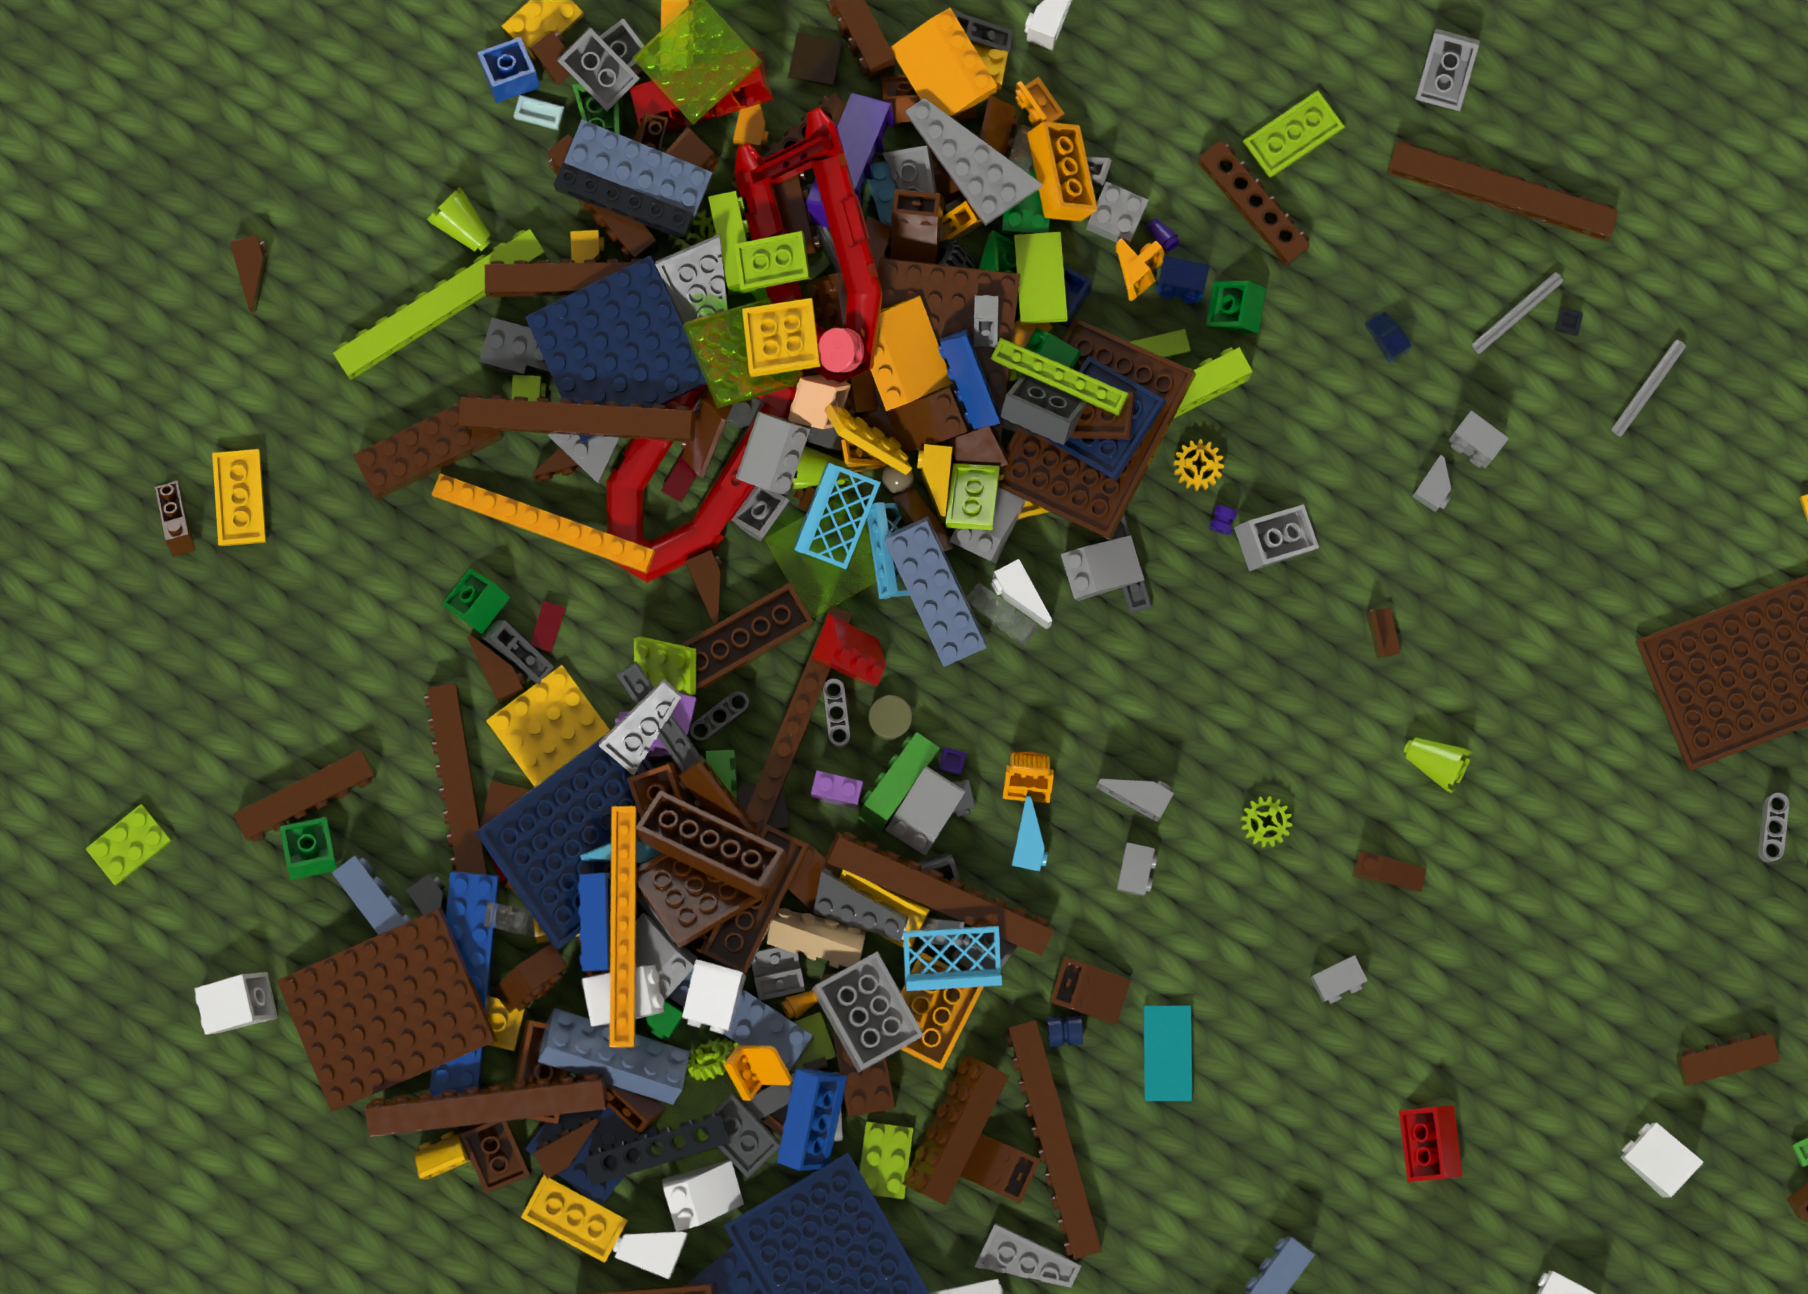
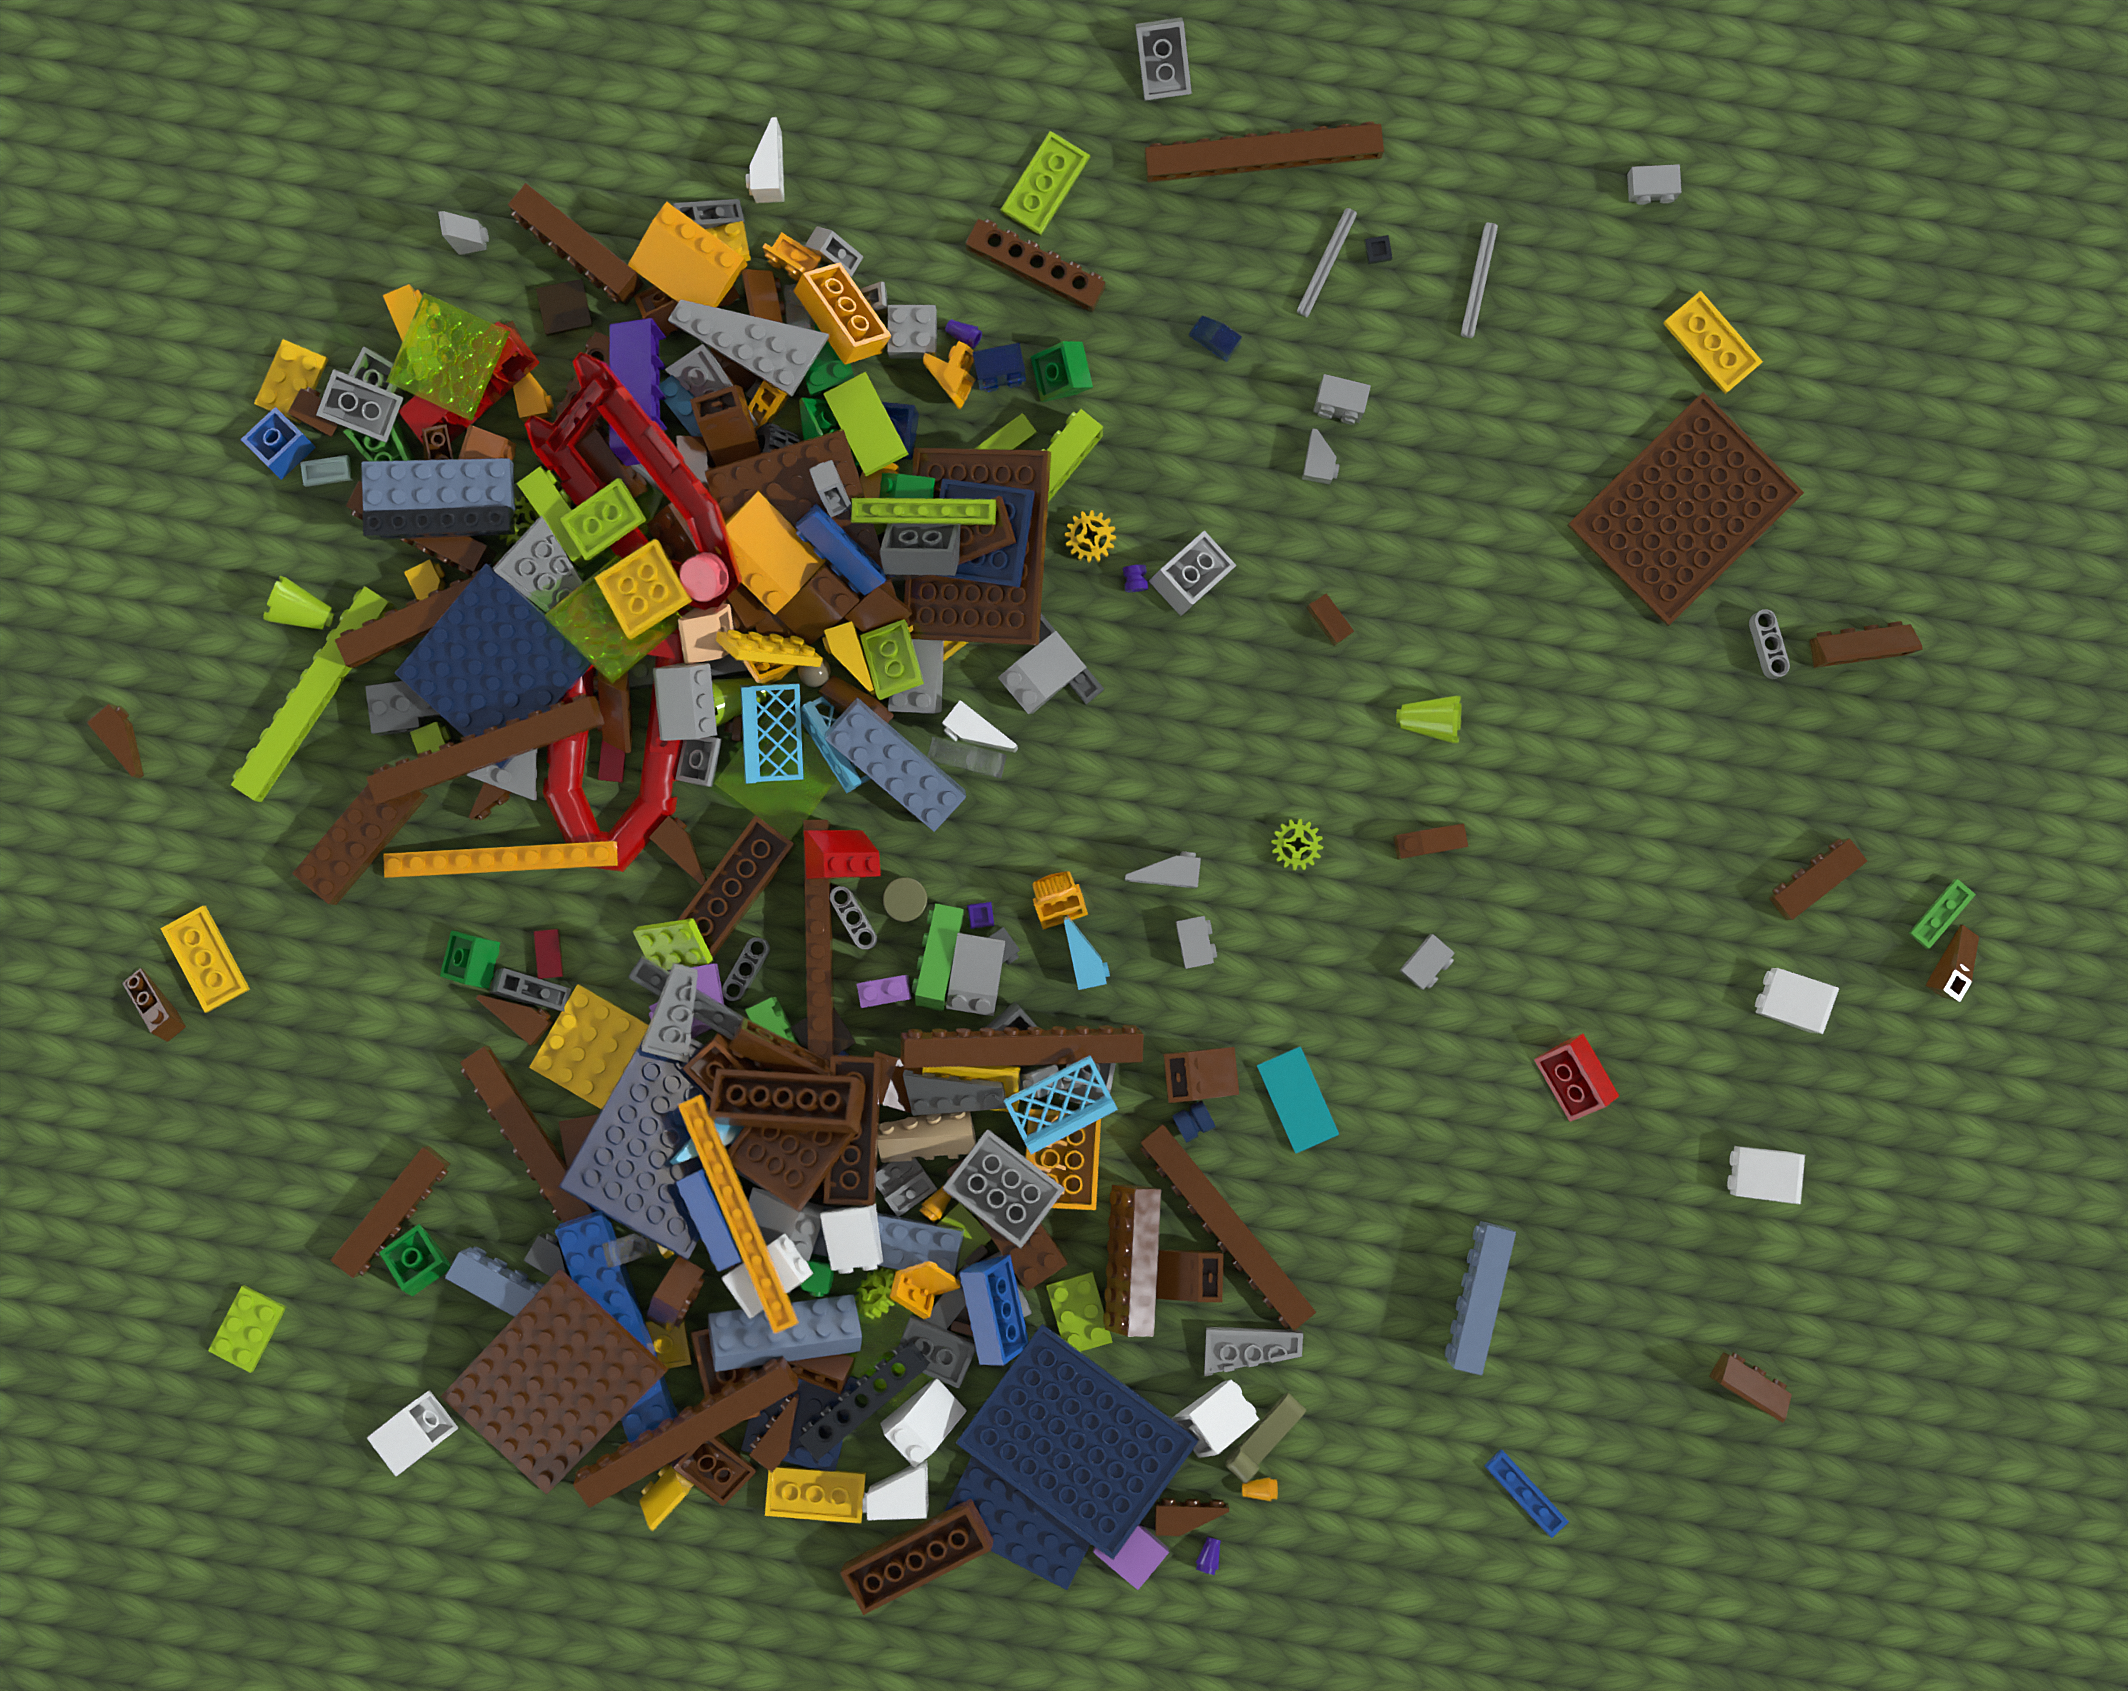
camera: 15 degrees left, 5 degrees up
(1078, 111) = (834, 249): none -> light grey slope

